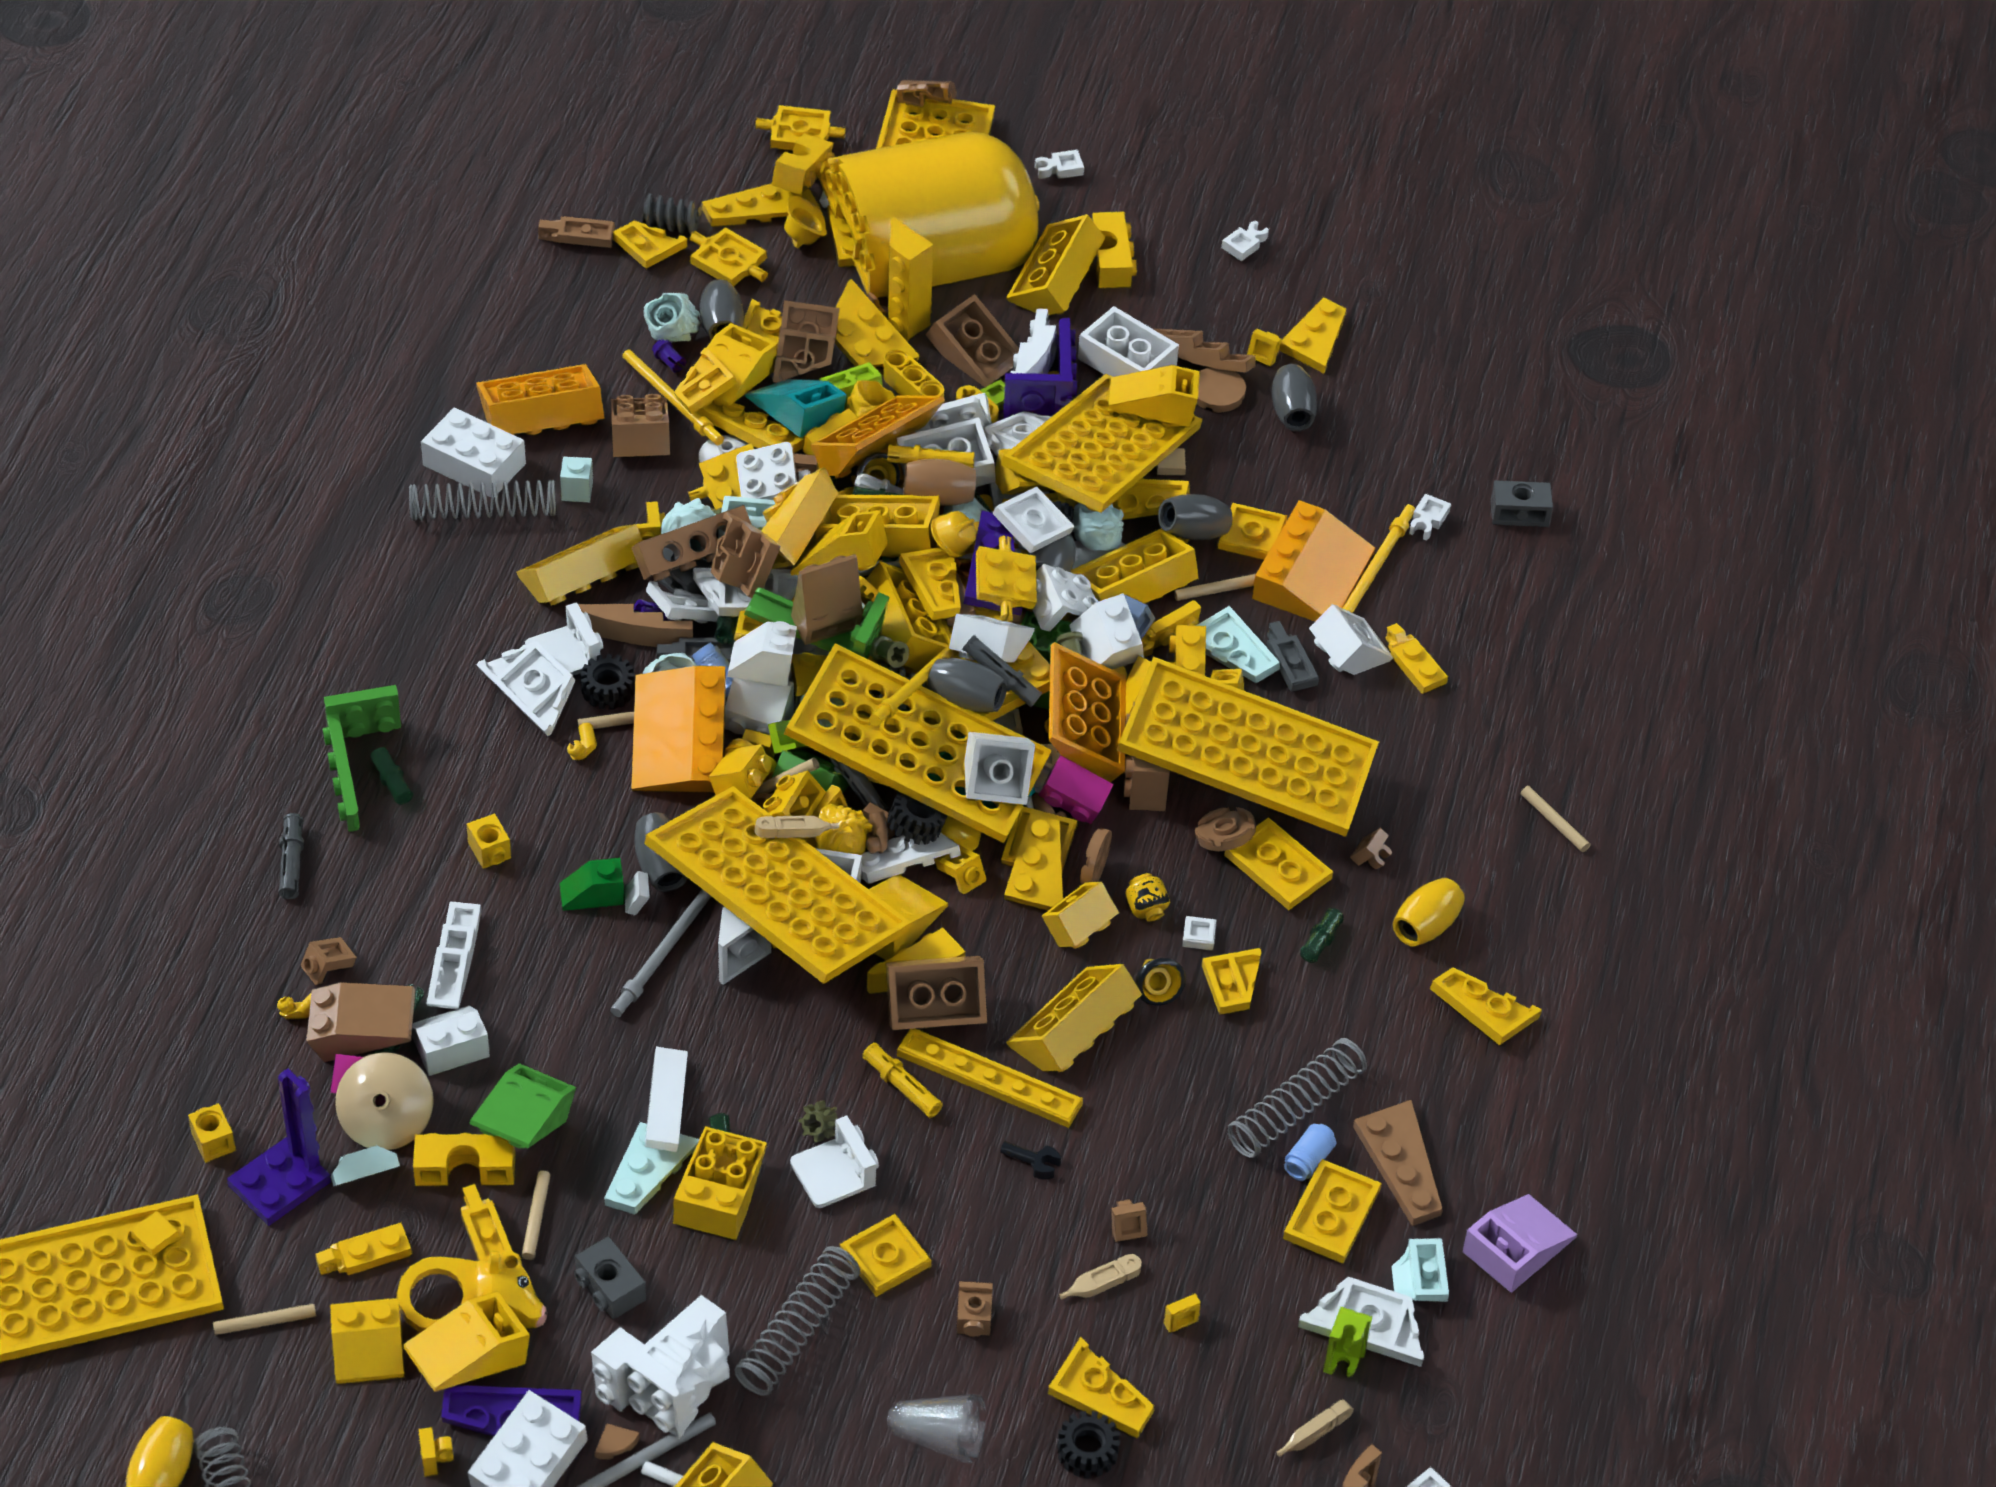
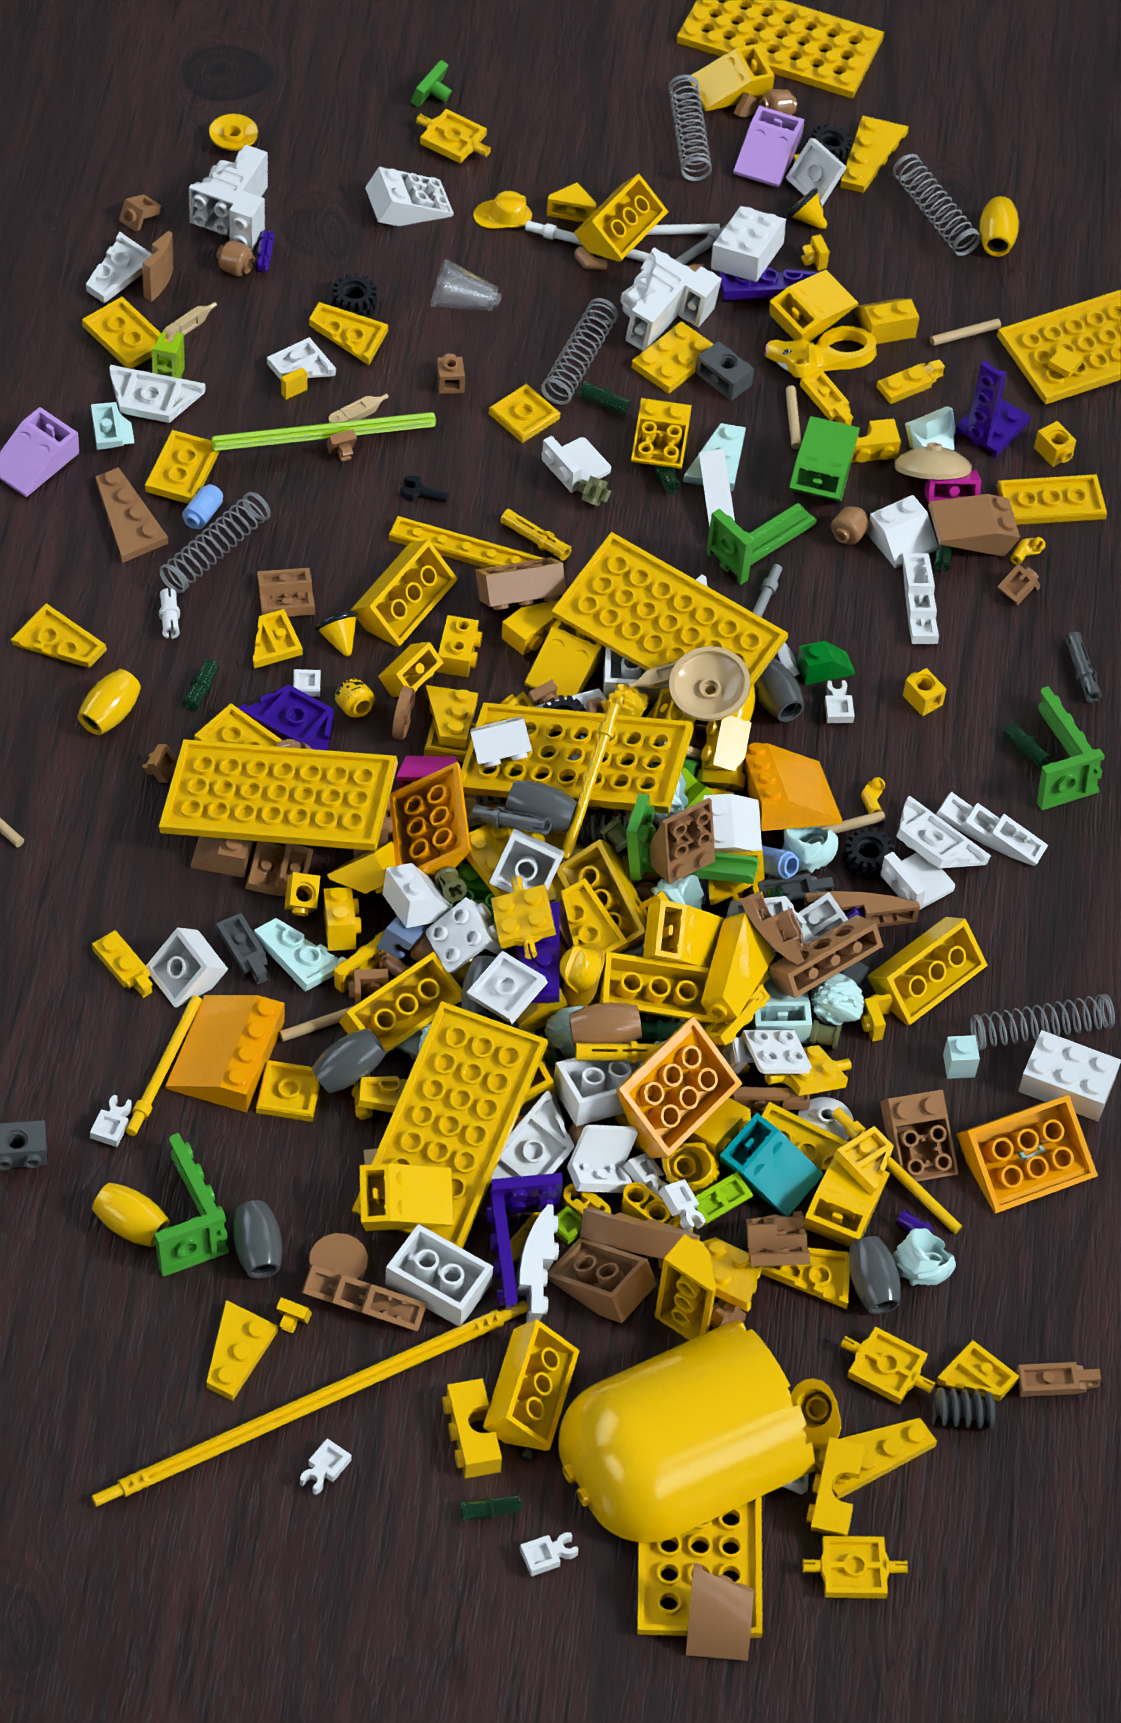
camera: 170 degrees right, 5 degrees up
(237, 1069) = (1054, 499): none -> yellow tile
(464, 694) = (994, 832): none -> white slope
(512, 1044) = (850, 525): none -> medium nougat head
(591, 839) = (838, 704): none -> white plate
(663, 1304) = (672, 357): none -> yellow plate
(673, 1020) = (741, 549): none -> bright green bracket
(752, 785) = (709, 670): none -> tan dish
(776, 1258) = (605, 397): none -> clear green pin
(892, 365) = (682, 1202): none -> white plate
(927, 352) = (630, 1233): none -> medium nougat slope
(932, 866) = (543, 693): none -> medium nougat bracket
(1019, 946) = (458, 646): none -> yellow brick
(1104, 200) = (490, 1507): none -> clear green axle
(1149, 1236) = (322, 431): none -> lime axle
(1163, 605) = (366, 982): none -> medium nougat bracket
(1170, 1349) = (300, 355): none -> white wing
(1215, 1040) = (286, 590): none -> medium nougat slope
(1219, 886) = (294, 716): none -> dark purple wing
(1275, 282) = (308, 1404): none -> yellow axle
(1349, 396) = (201, 1236): none -> bright green bracket
(1355, 1021) = (169, 613): none -> white pin
(1401, 1415) = (123, 332): none -> yellow plate
(1413, 428) = (129, 1214): none -> yellow piece

